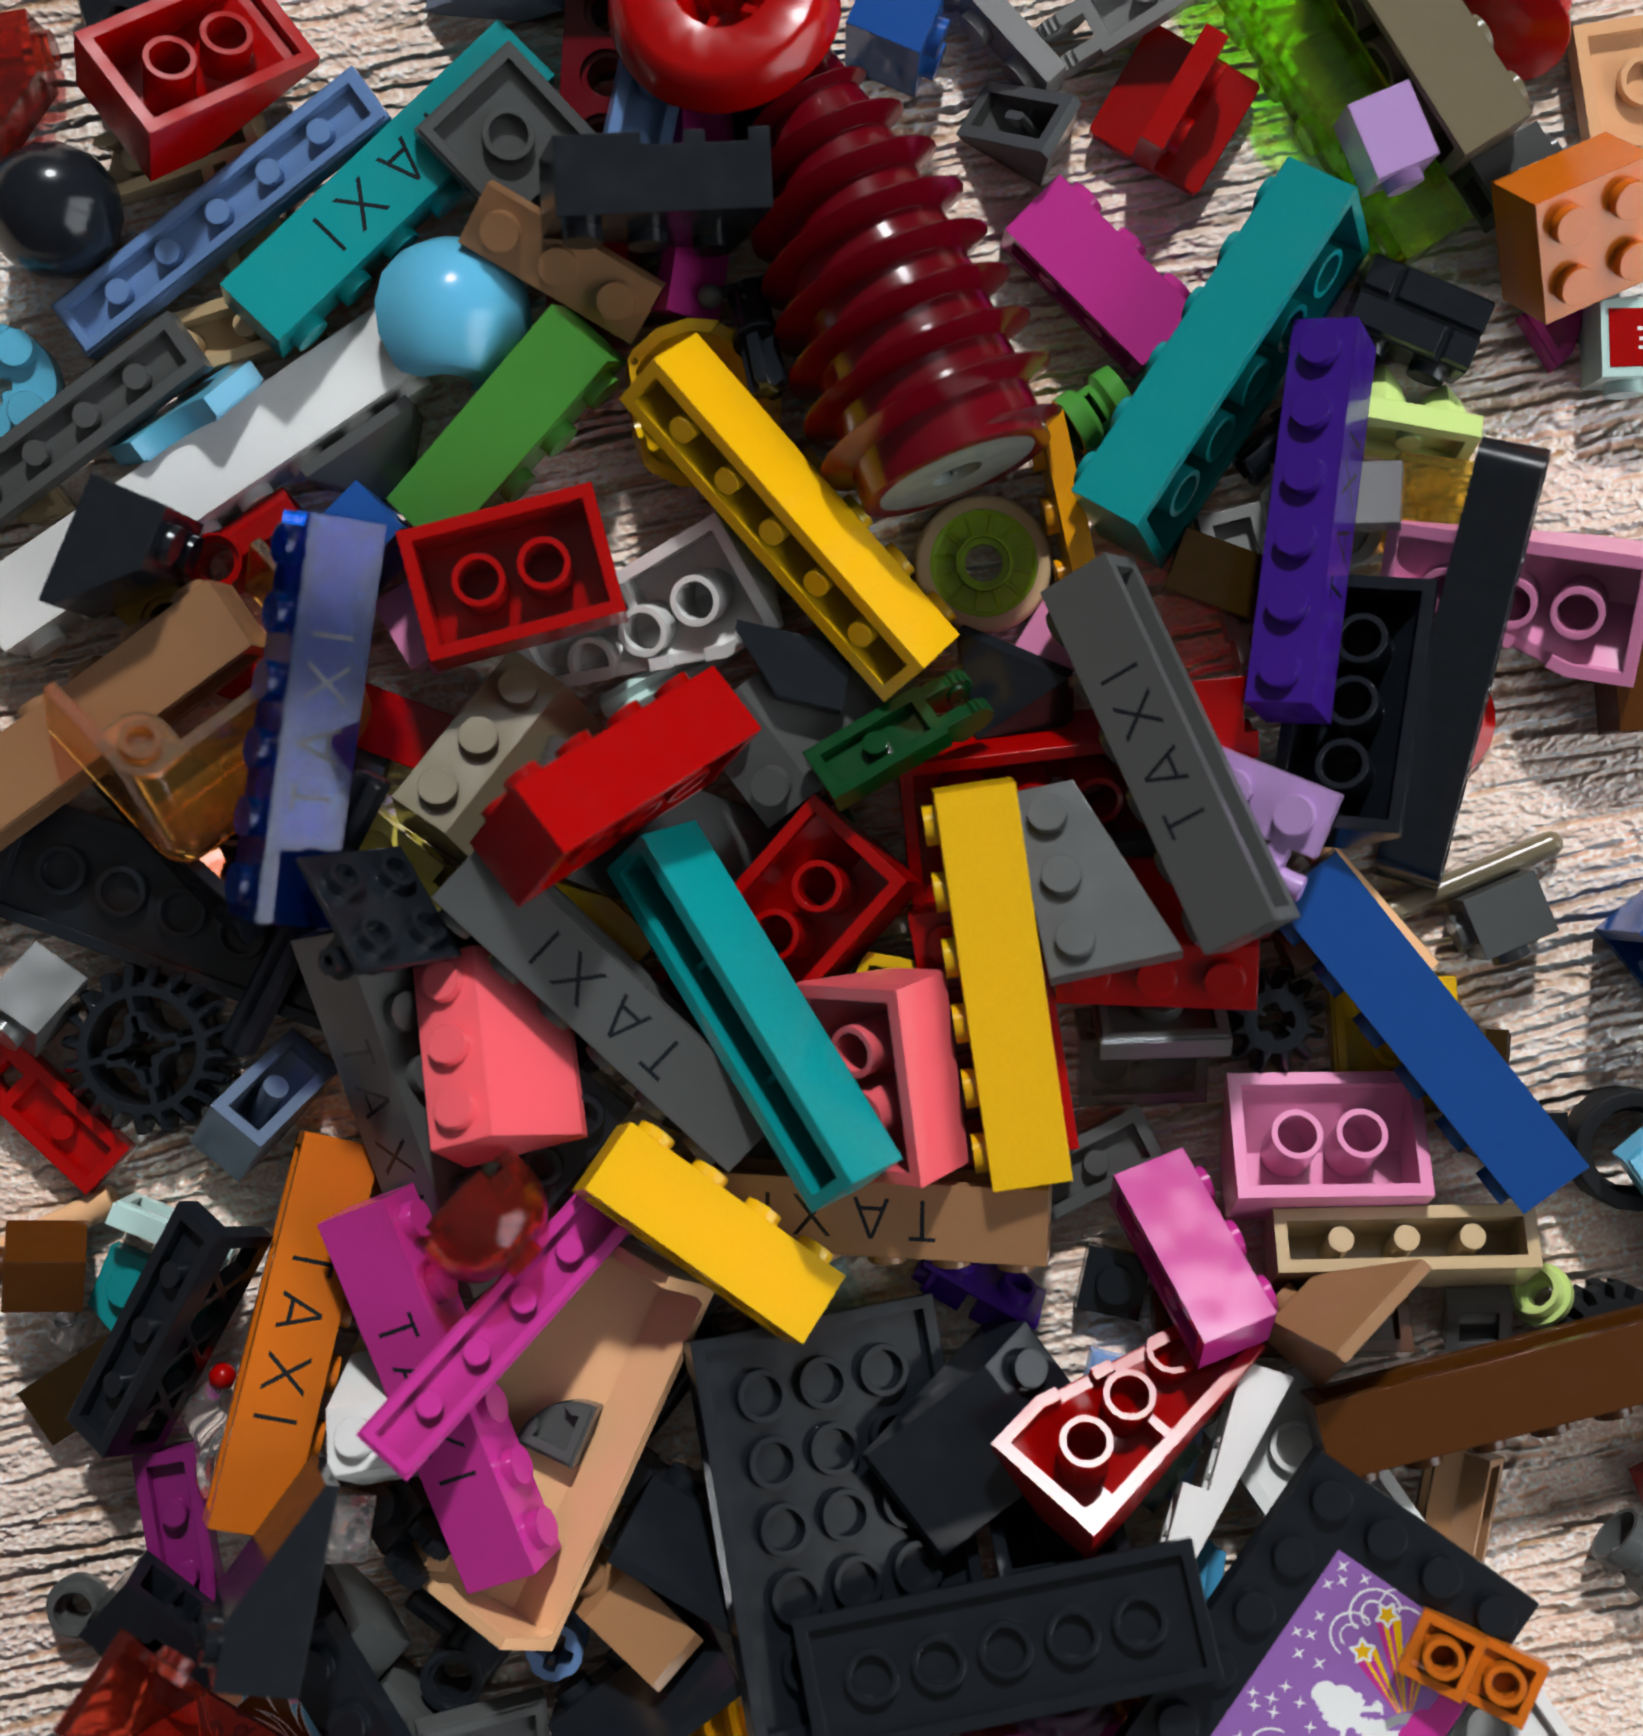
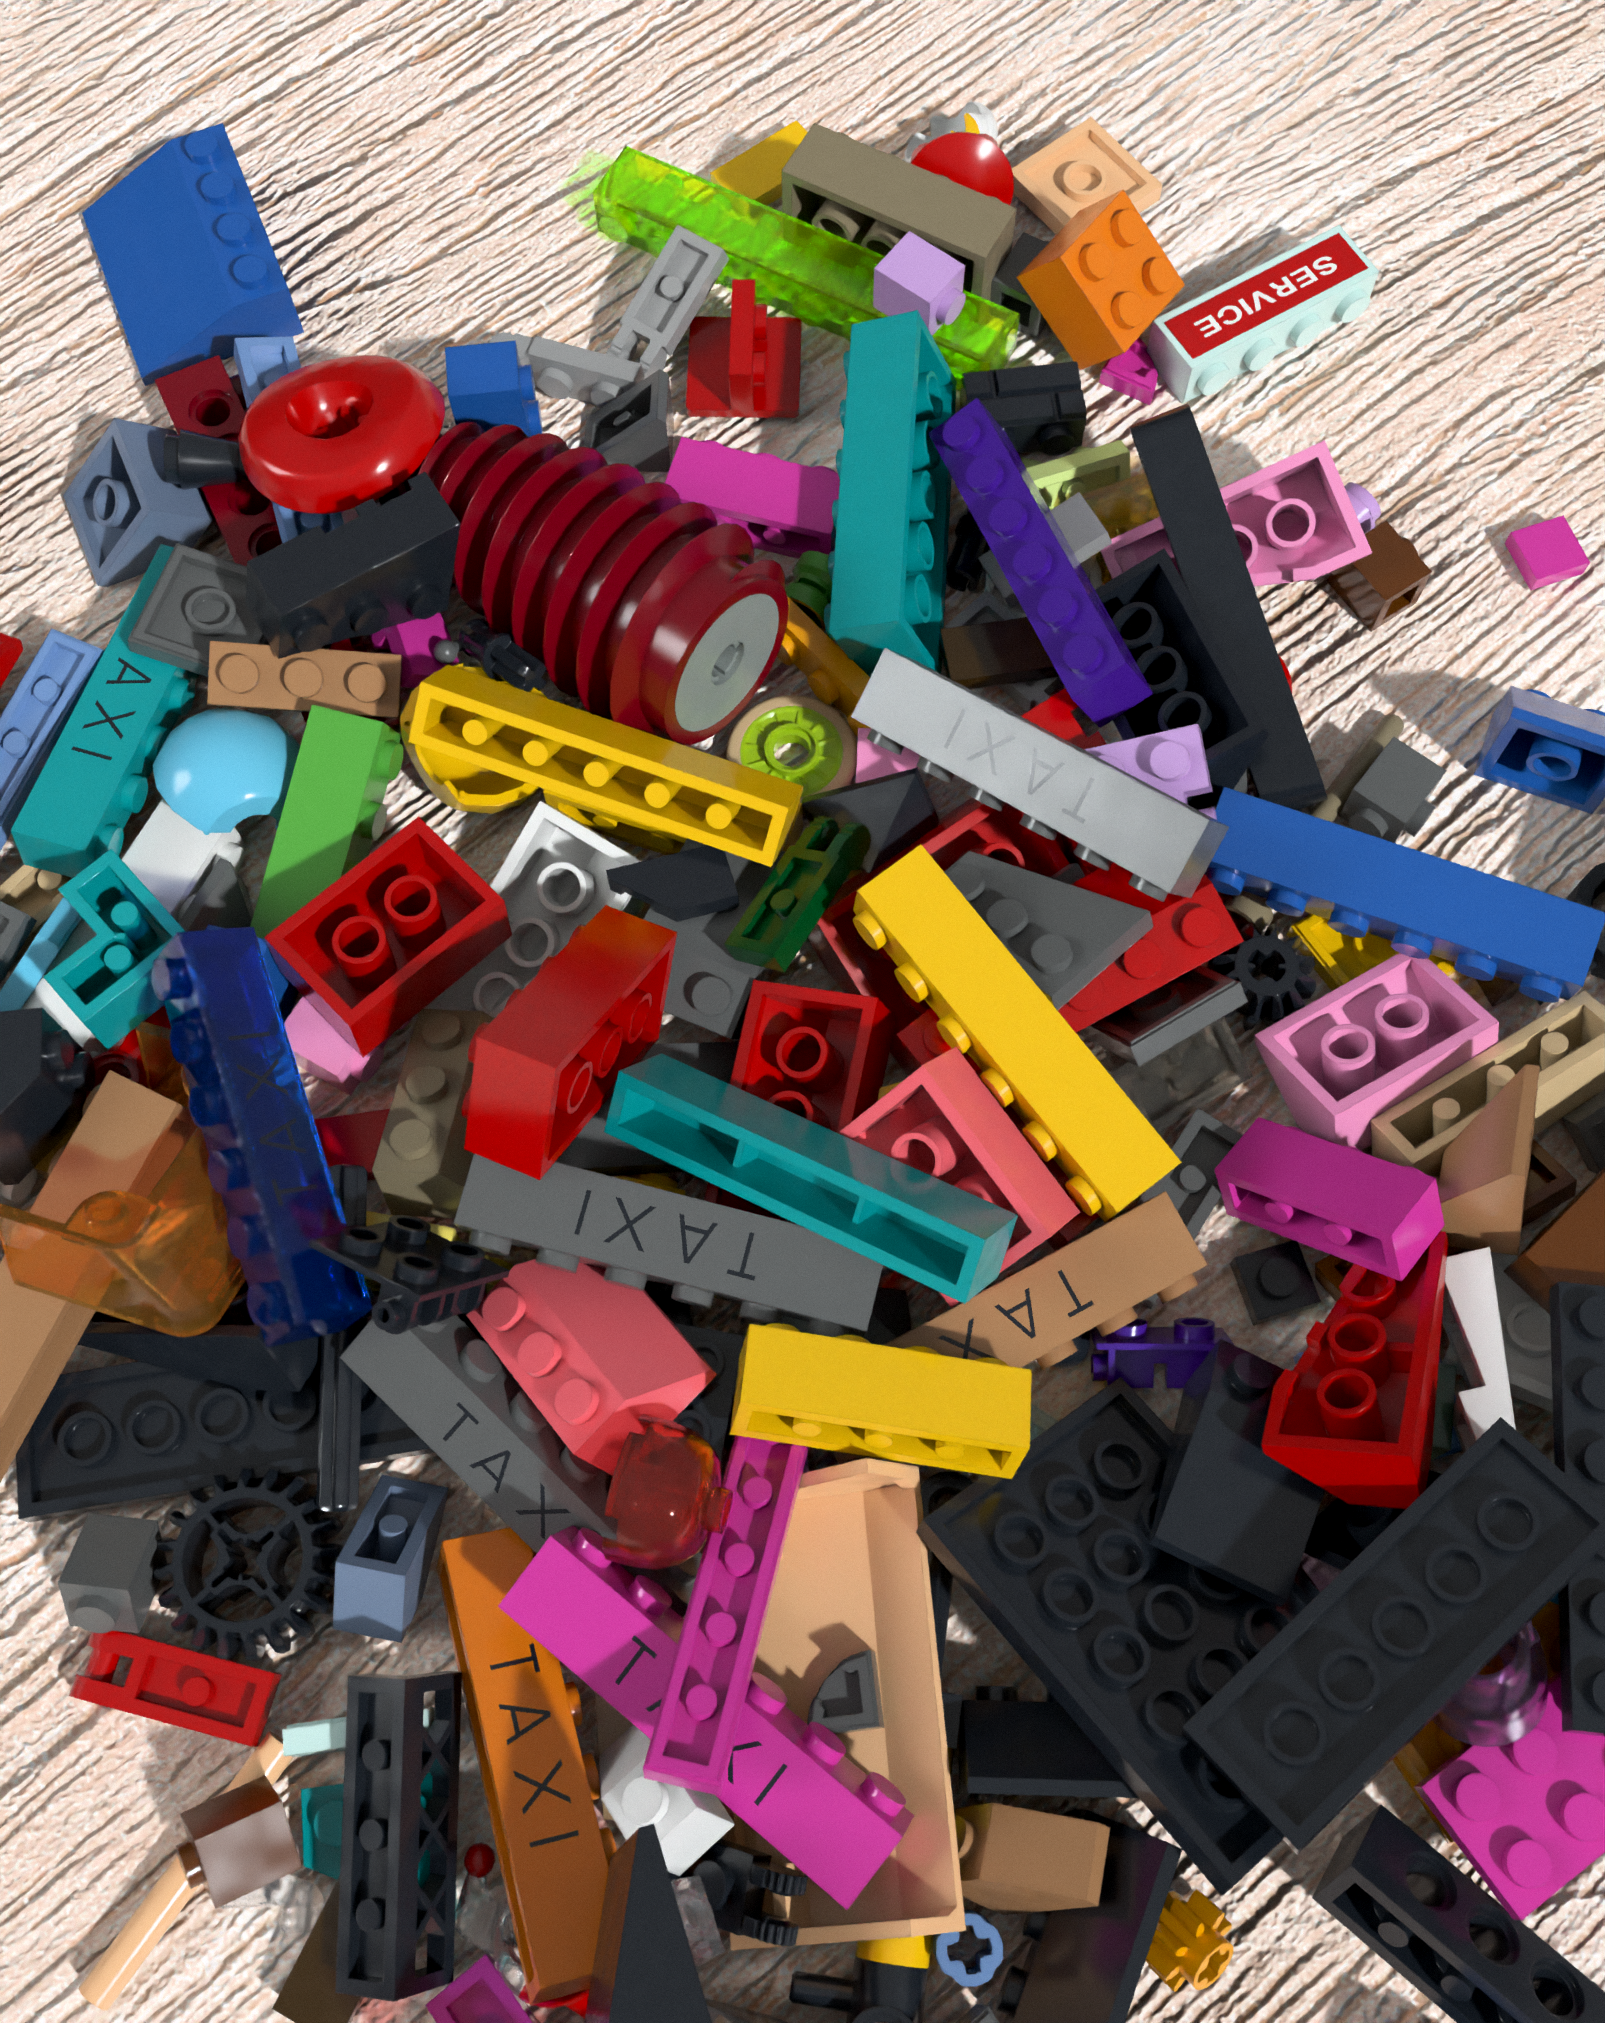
camera: 25 degrees left, 20 degrees down
(284, 466) = (111, 974): none -> teal brick

